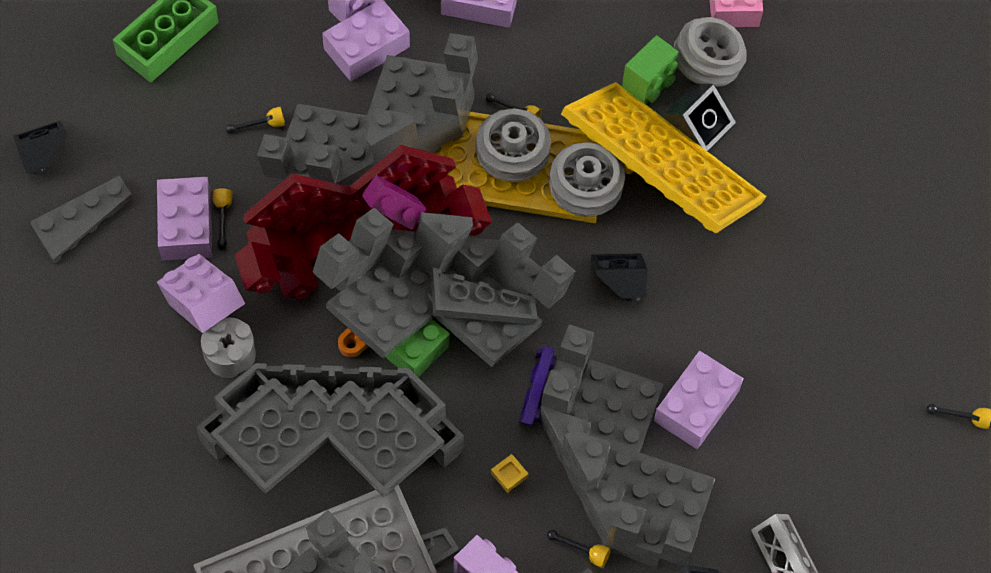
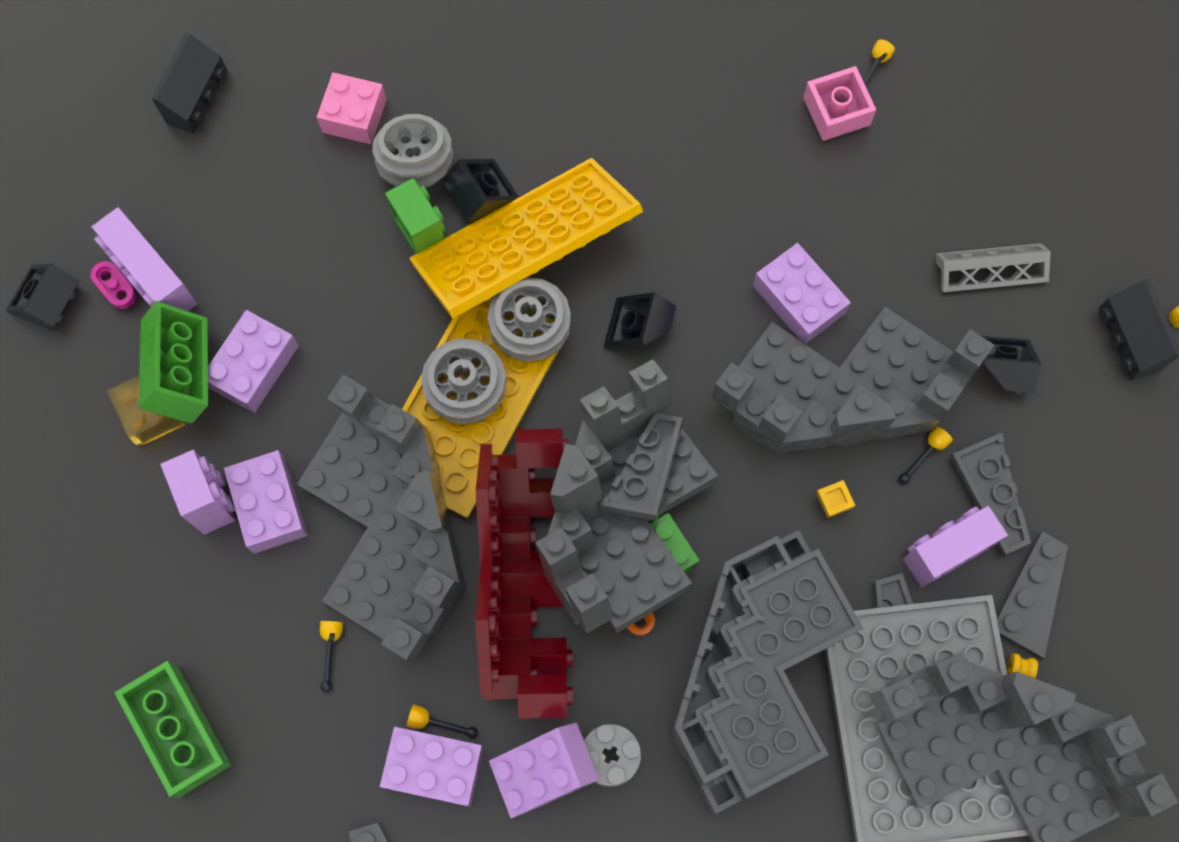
camera: 70 degrees left, 10 degrees up
(393, 202) = (524, 521): magenta brick -> none
(490, 97) = (418, 357): black hinge -> none
(530, 409) = (749, 442): dark purple wing -> none
(905, 386) = (839, 103): none -> bright pink brick

